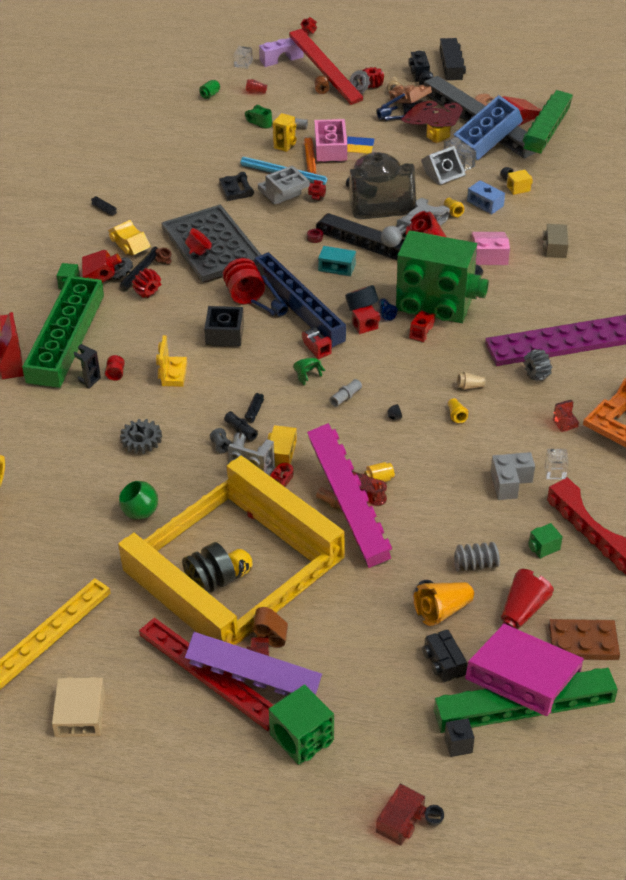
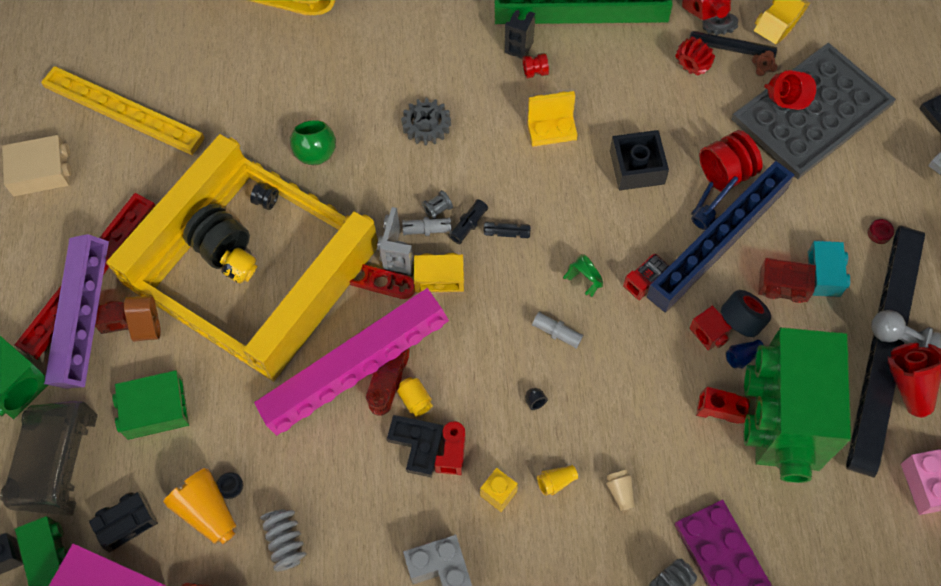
camera: 80 degrees right, 20 degrees up
(174, 543) = (264, 196): none -> black wheel
(340, 279) = (786, 280): none -> clear red brick
(348, 631) = (150, 405): none -> green brick
(383, 695) = (47, 457): none -> clear smoke windscreen
(414, 473) = (422, 438): none -> black plate
(424, 458) = (454, 449): none -> red leg
(460, 437) = (498, 489): none -> yellow brick

